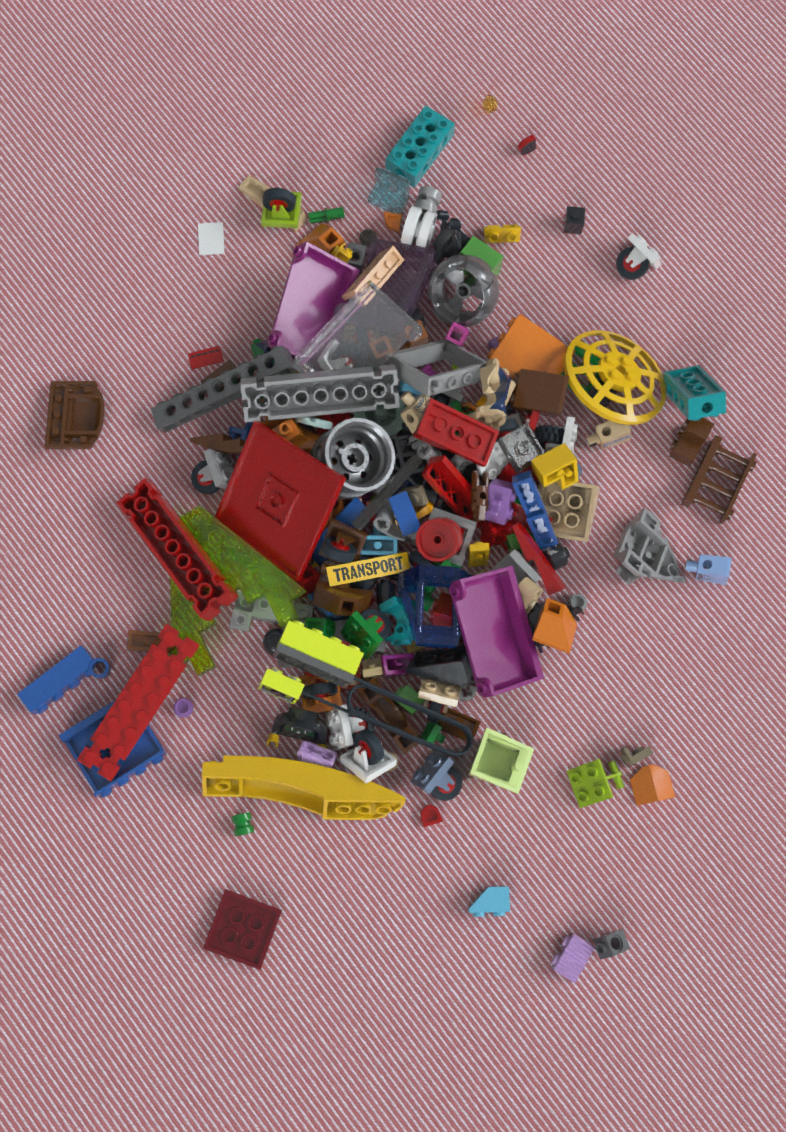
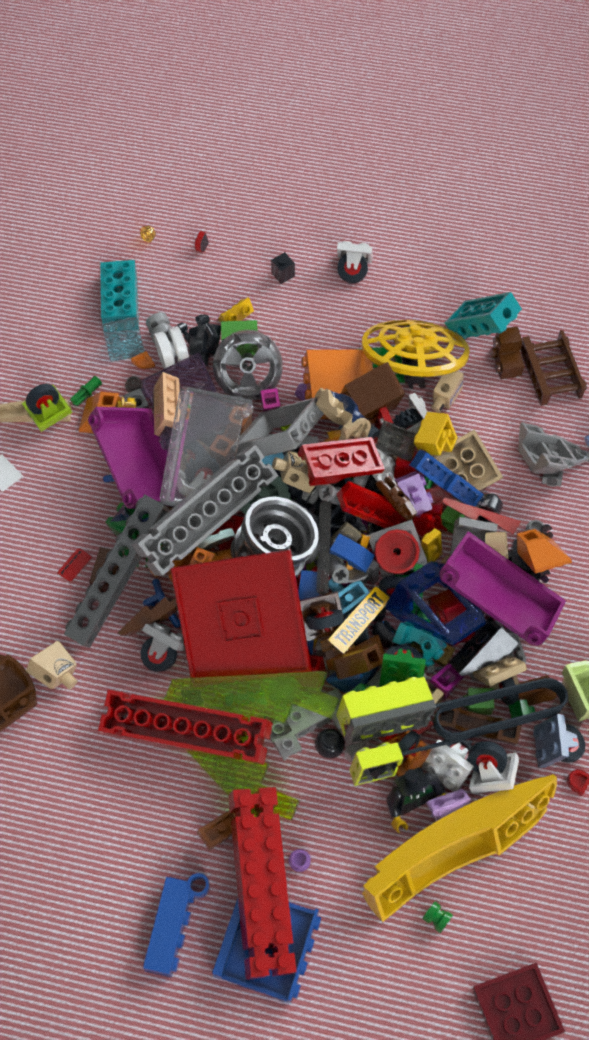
camera: 35 degrees left, 15 degrees down
(125, 428) = (53, 667): none -> tan torso

